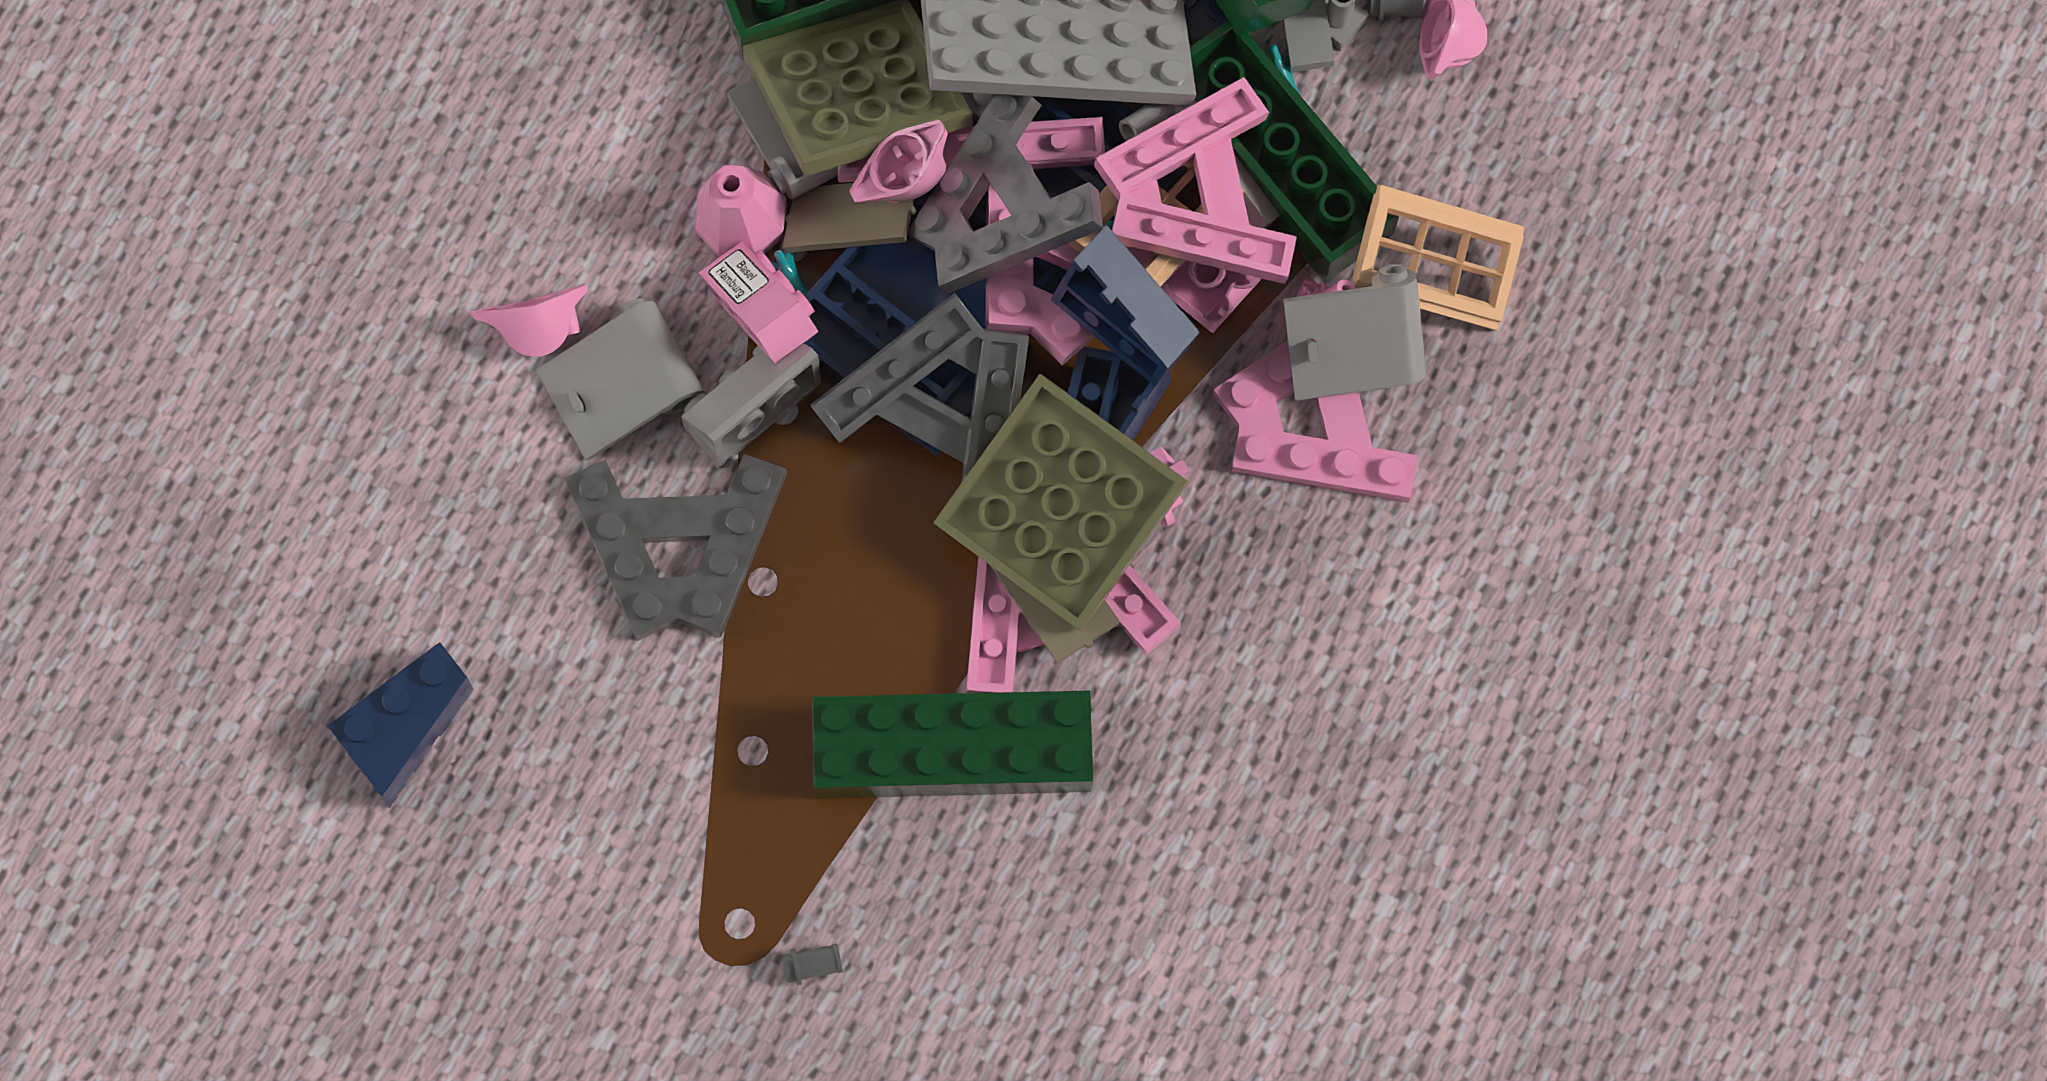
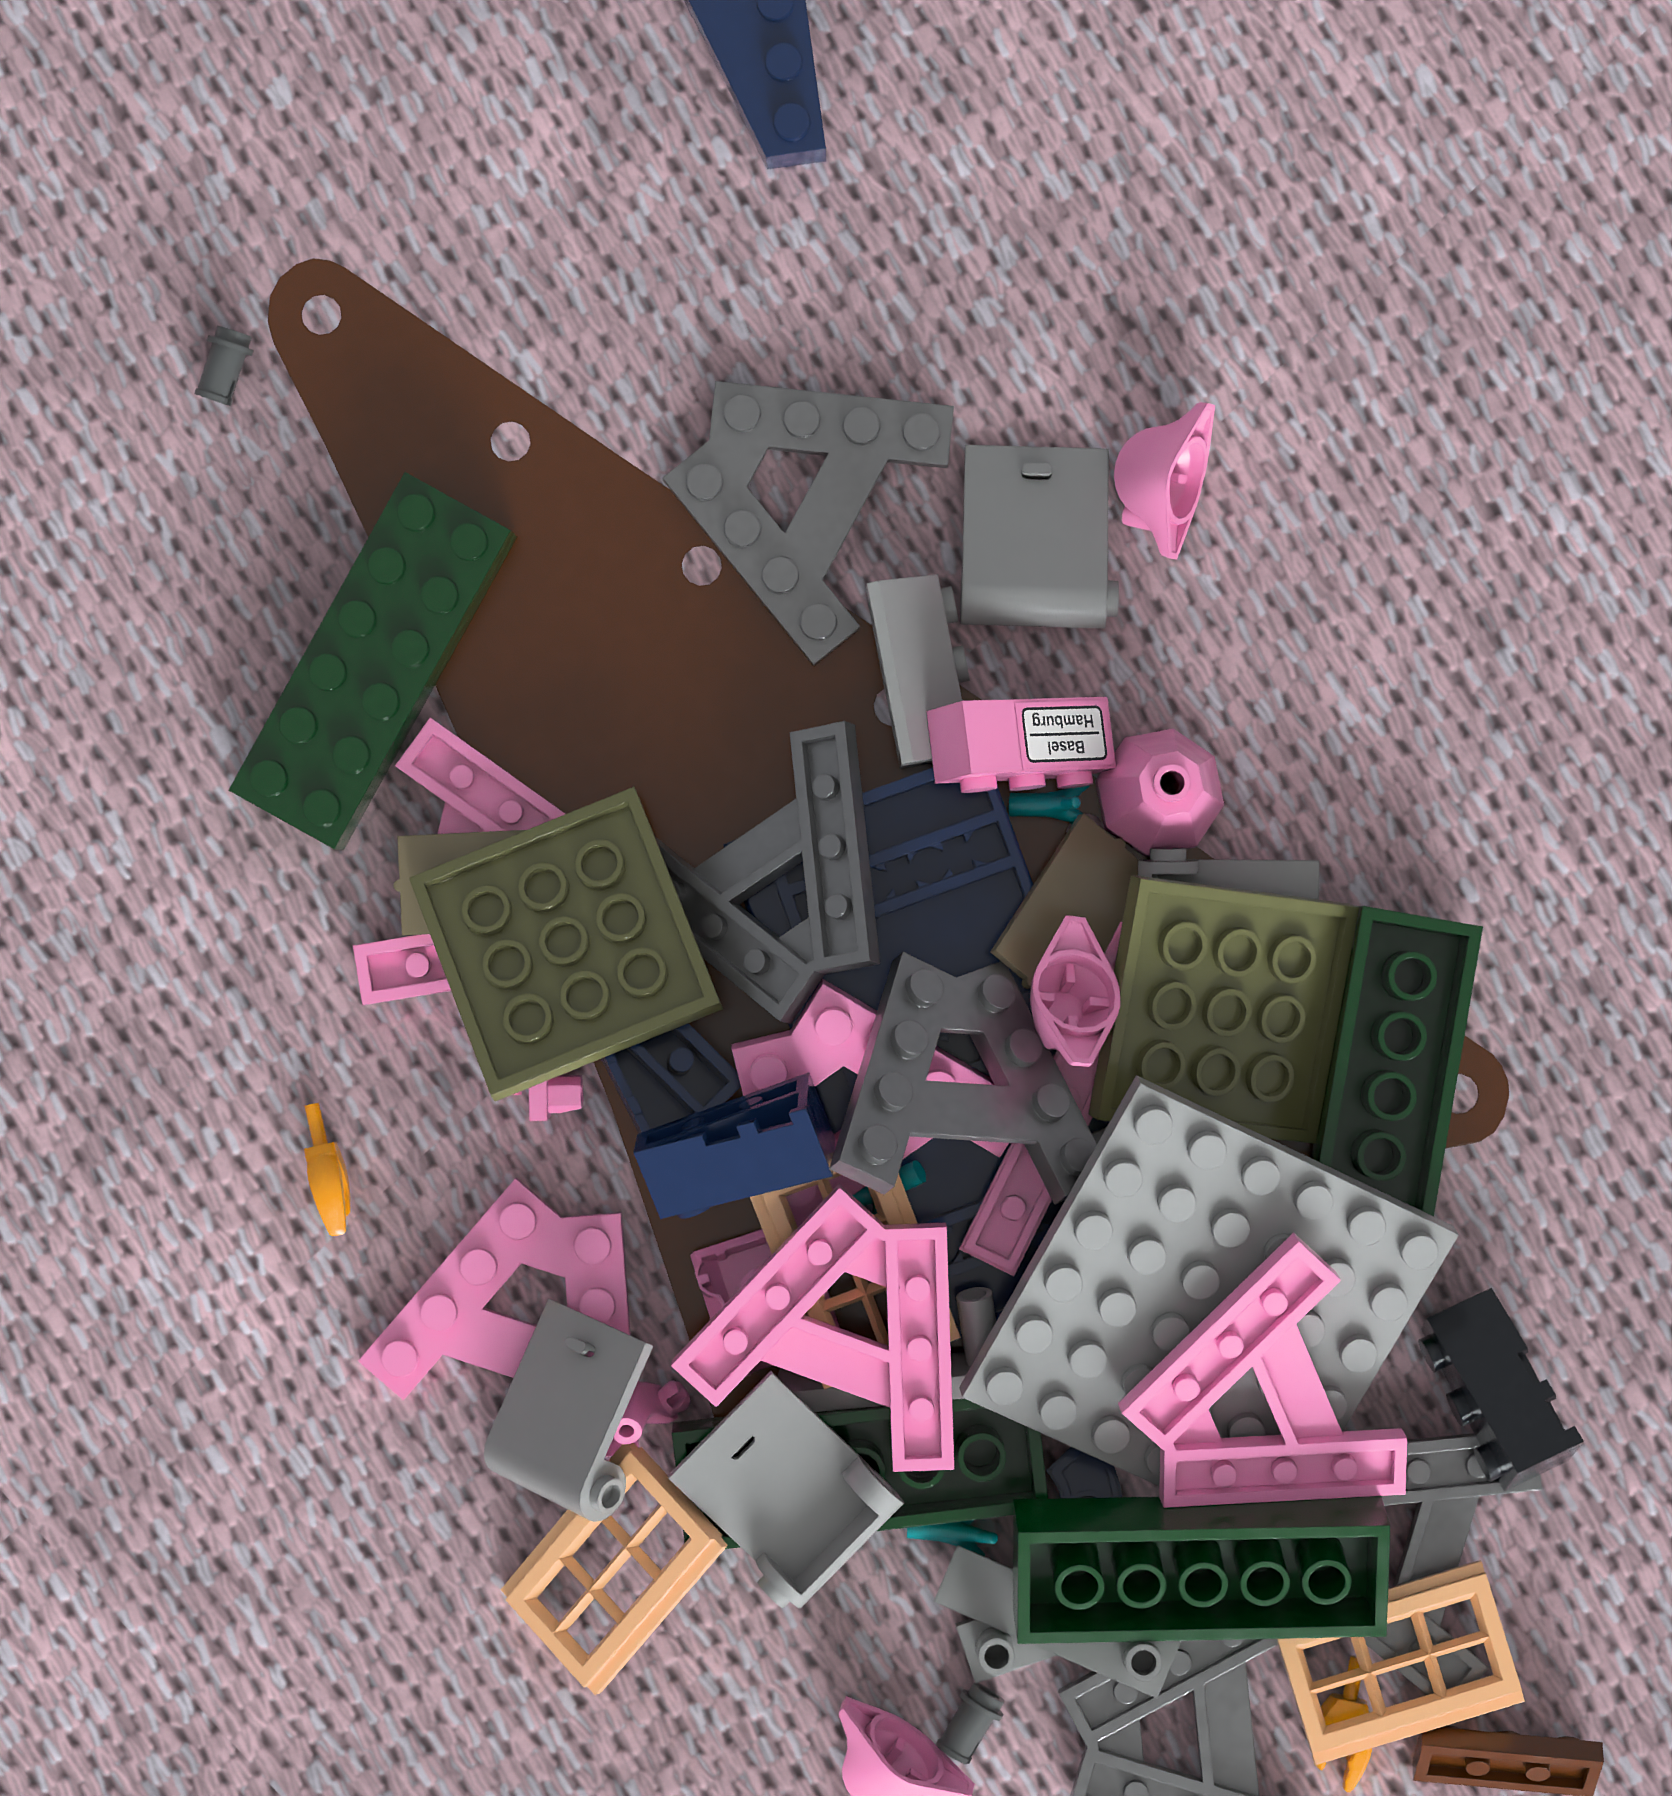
camera: 125 degrees right, 15 degrees up
(1304, 584) = (327, 1175): none -> light orange hand
(1322, 169) = (791, 1496): none -> light grey door

